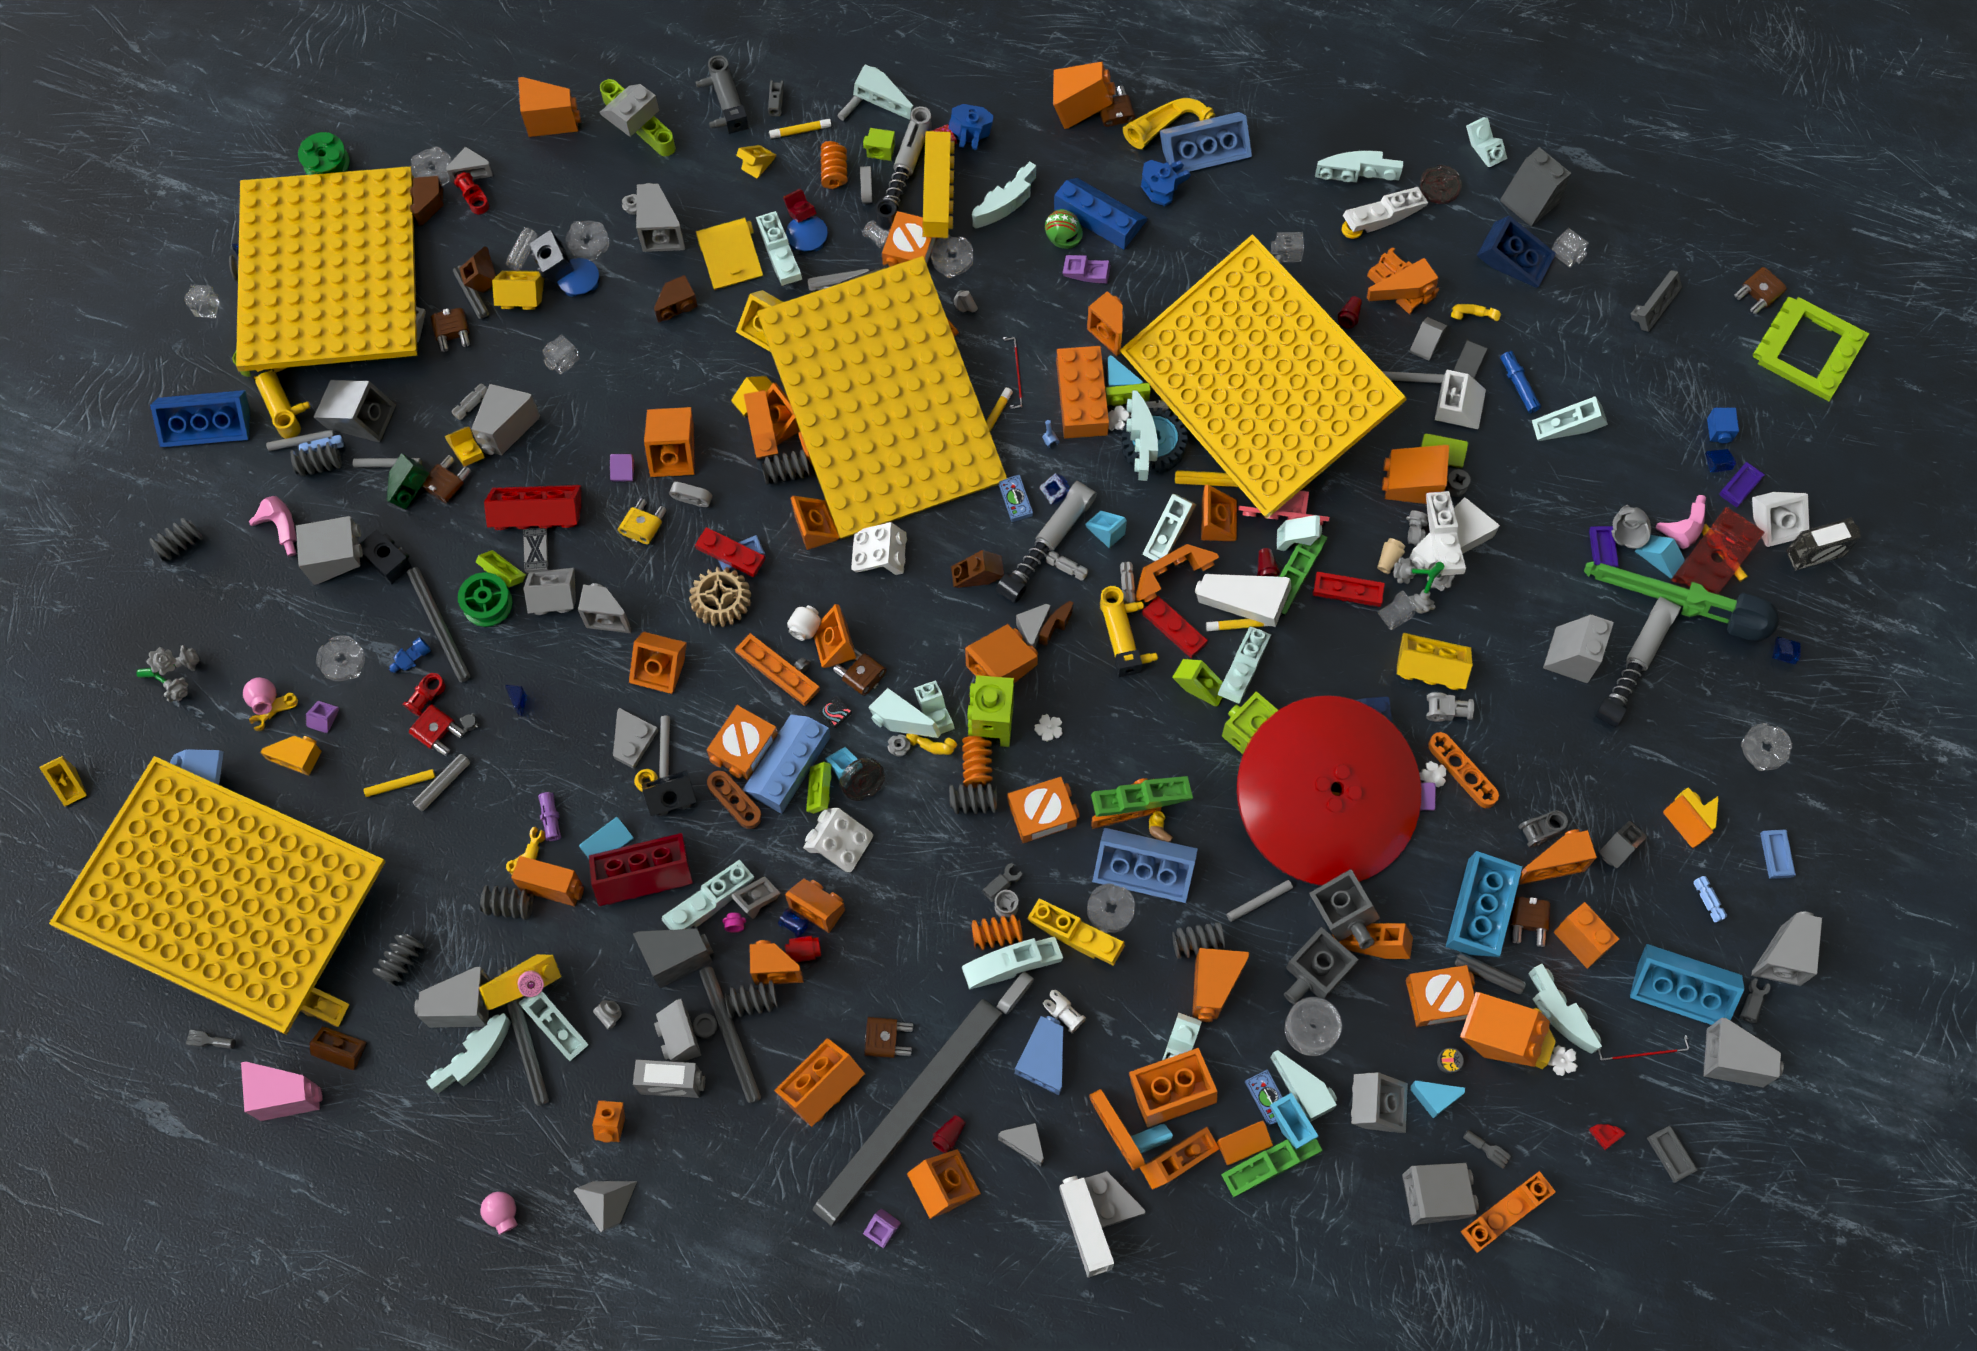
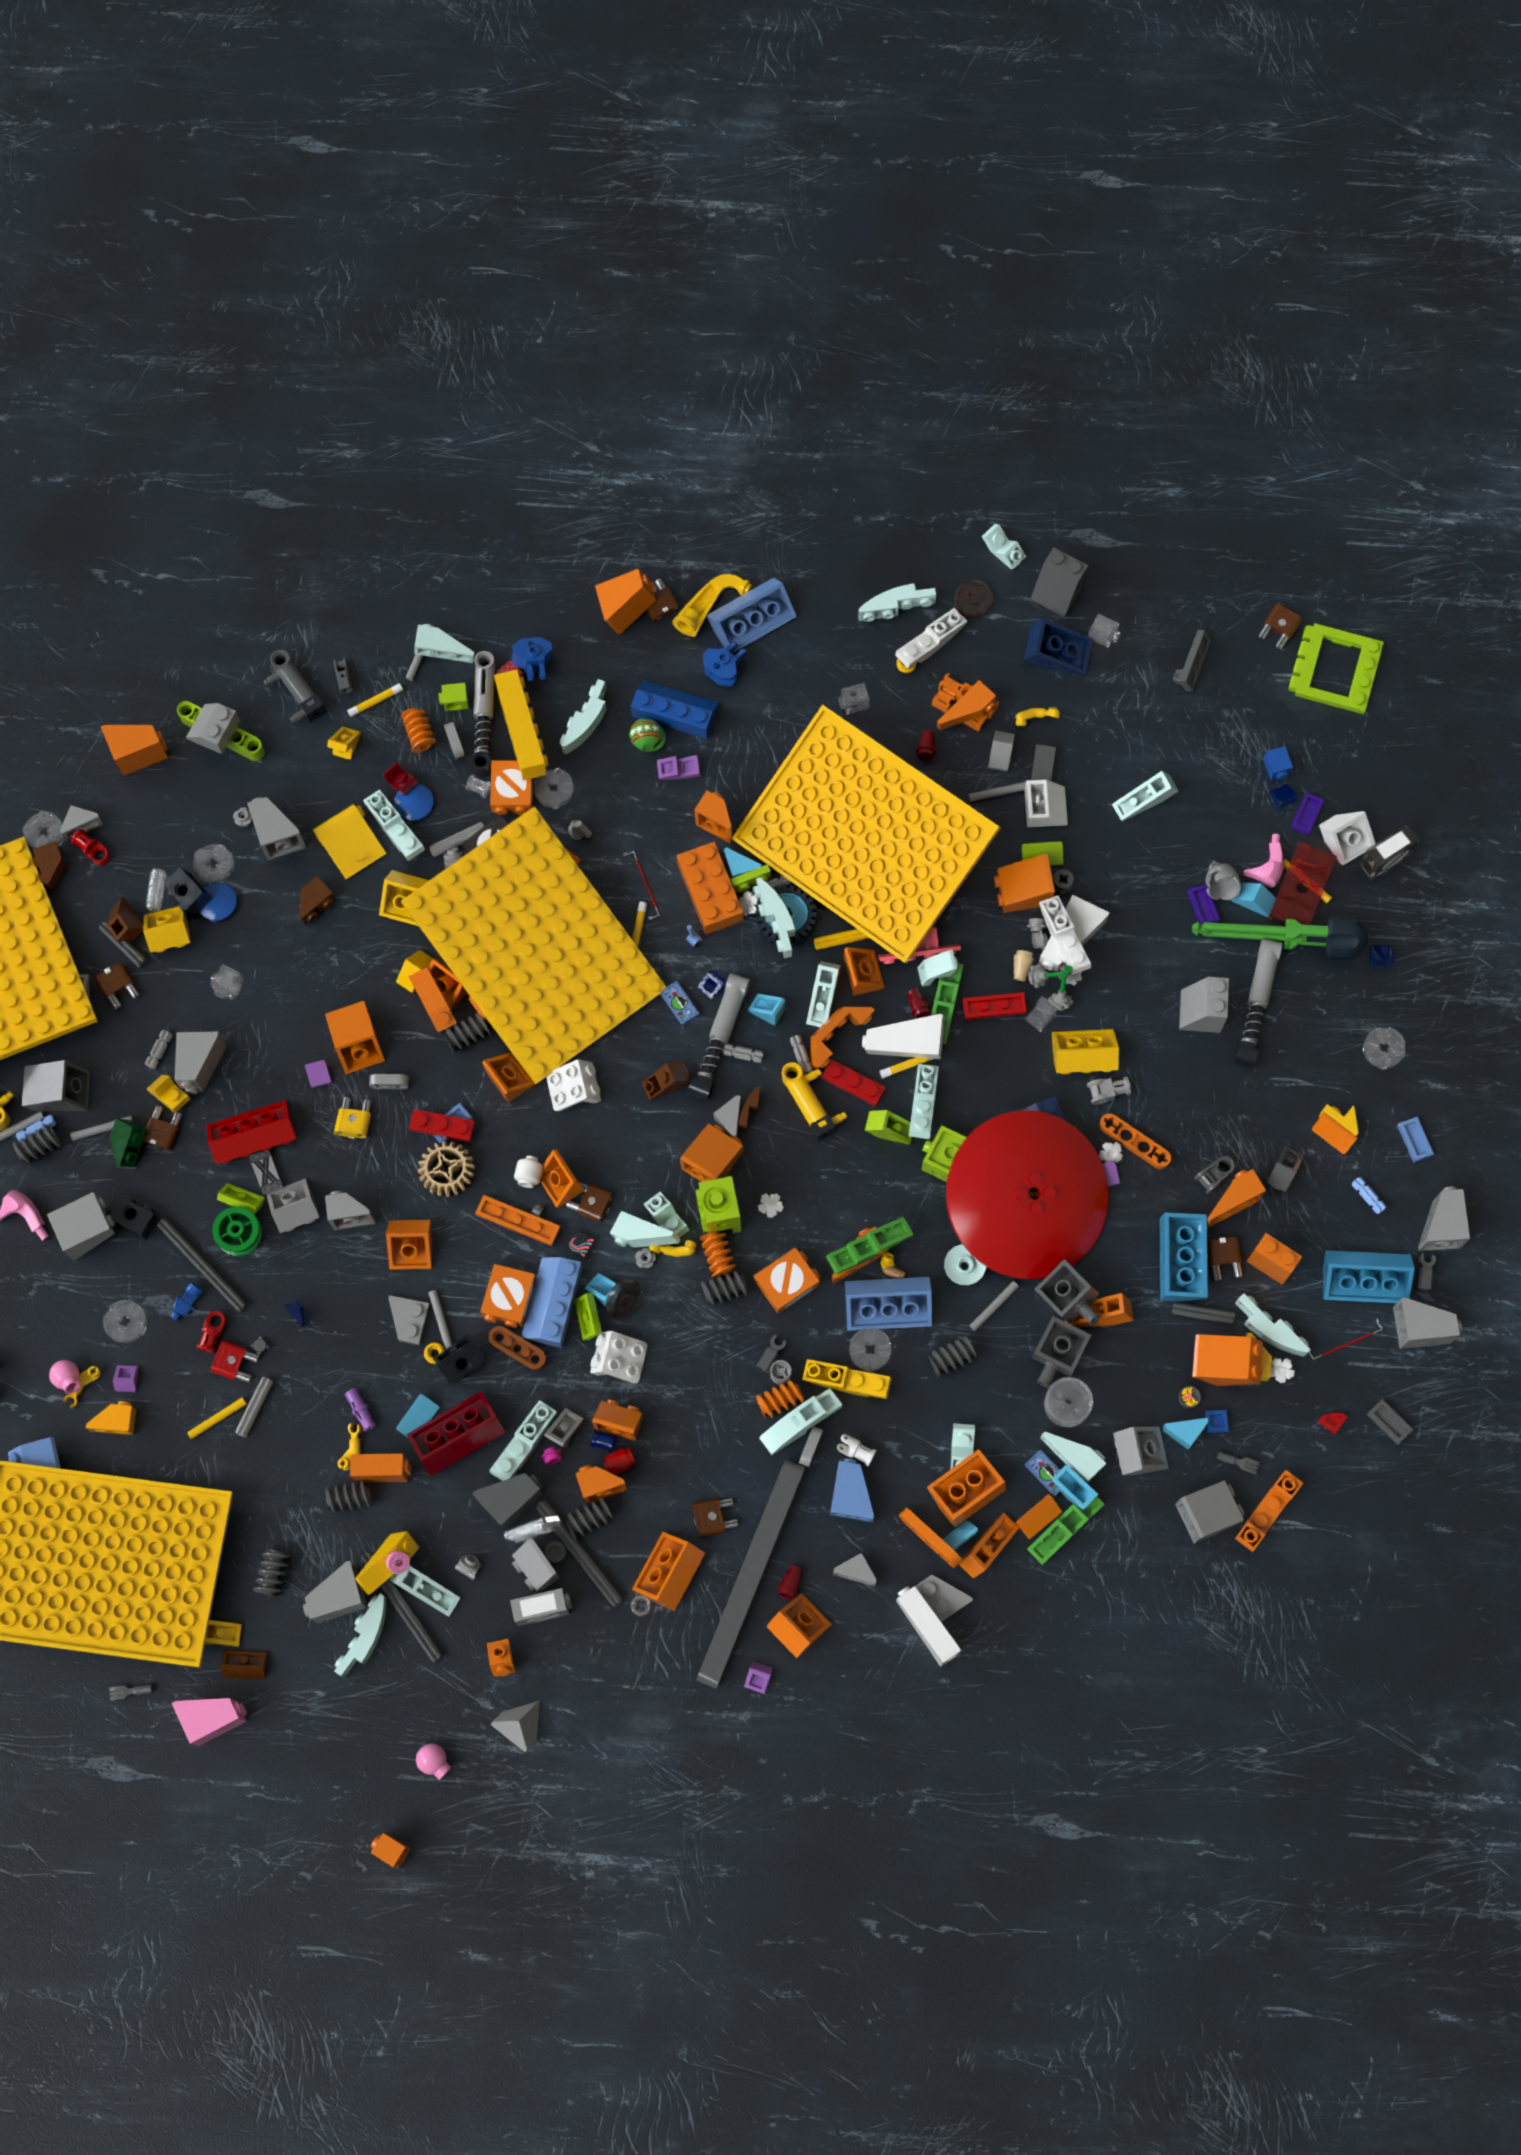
camera: 15 degrees left, 5 degrees up
(419, 1295) = (389, 1850): none -> orange piece
(686, 991) = (532, 1529): none -> clear tile
(784, 1114) = (647, 1607): none -> clear bush
(1214, 980) = (976, 1387): orange slope -> none
(1235, 837) = (952, 1266): none -> light aqua dish
(1441, 995) = (1167, 1344): orange brick -> none
(1474, 1096) = (1217, 1421): none -> blue tile
(1517, 375) = (1086, 763): blue pin -> none

